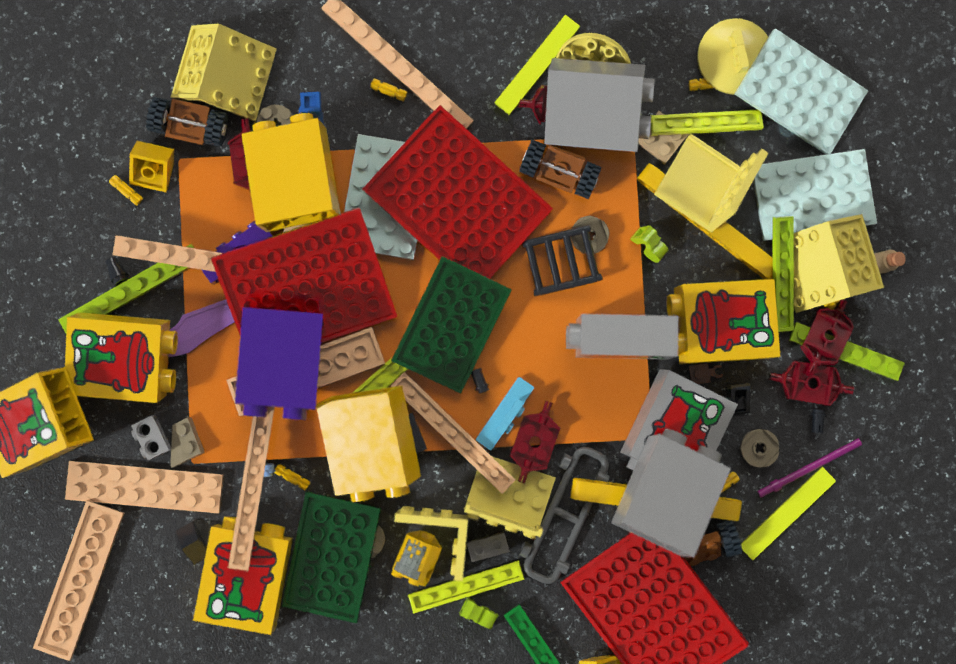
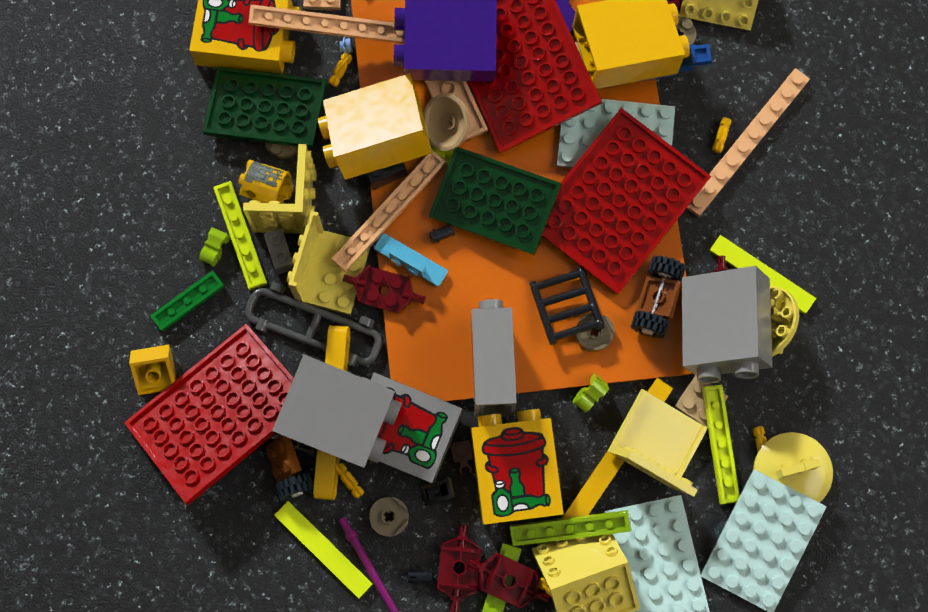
camera: 90 degrees right, 10 degrees down
(373, 374) = (446, 121): none -> tan dish

